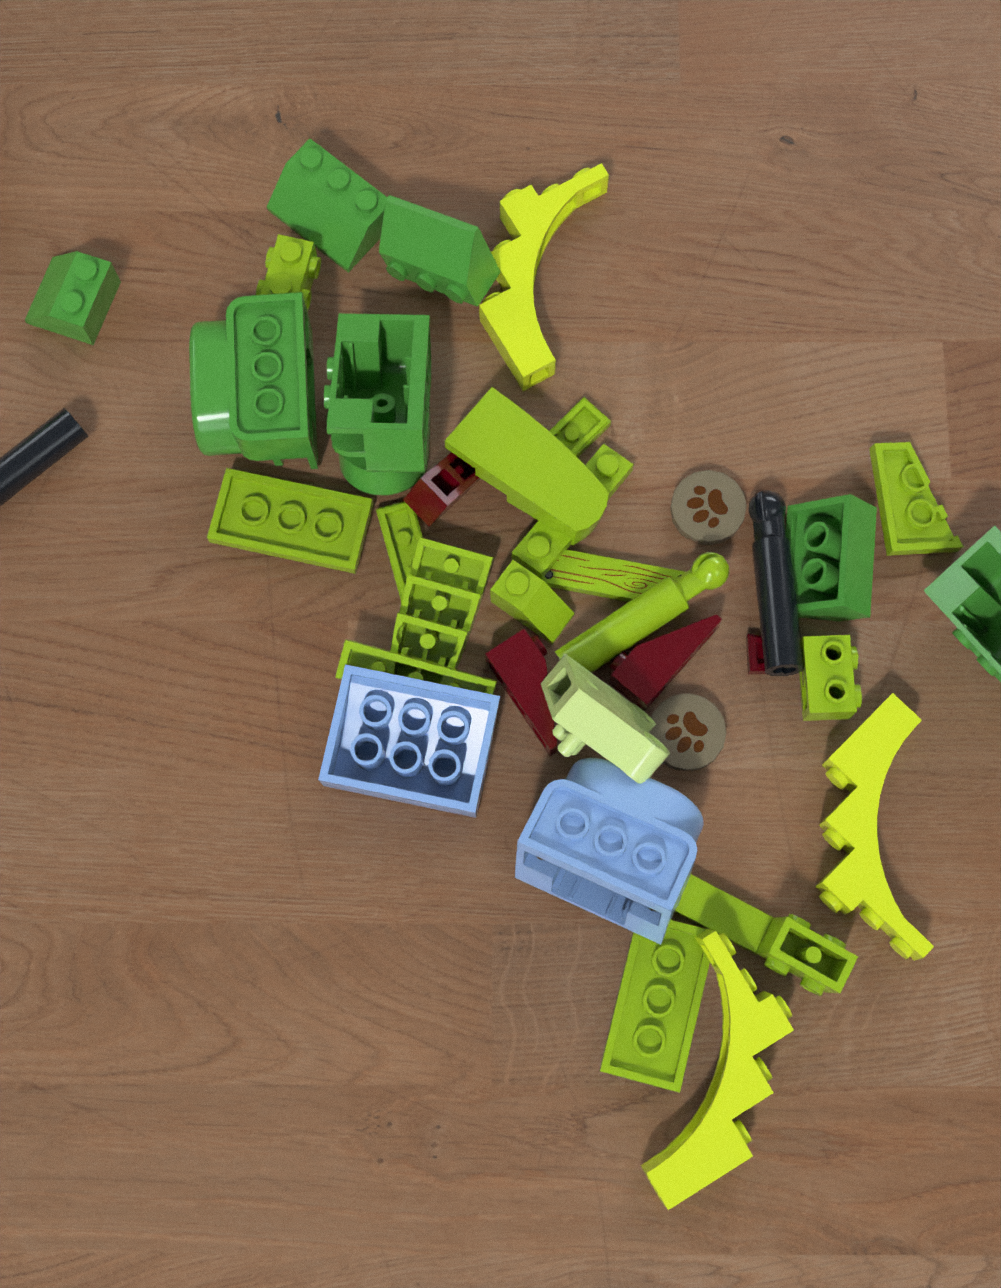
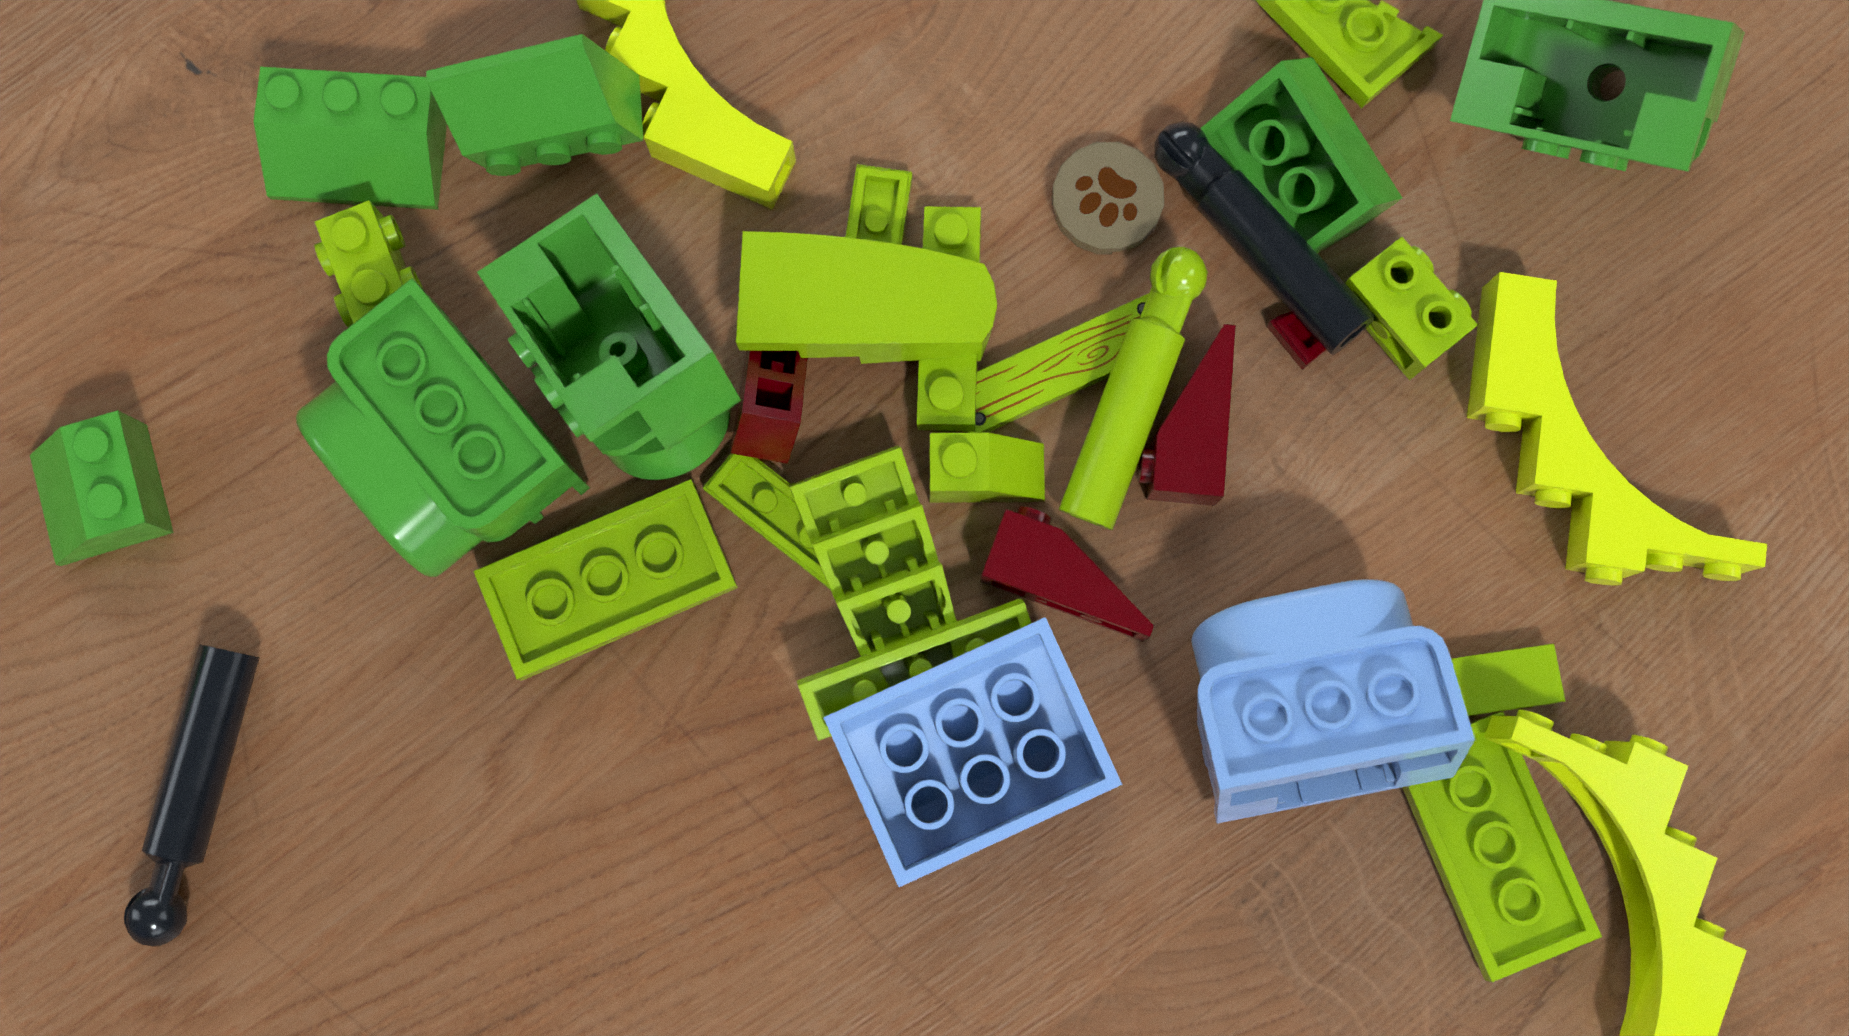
camera: 40 degrees left, 5 degrees up
(602, 719) = (1195, 559): yellowish green piece -> none
(689, 730) = (1285, 493): dark tan tile -> none
(814, 958) = (1645, 660): lime brick -> none

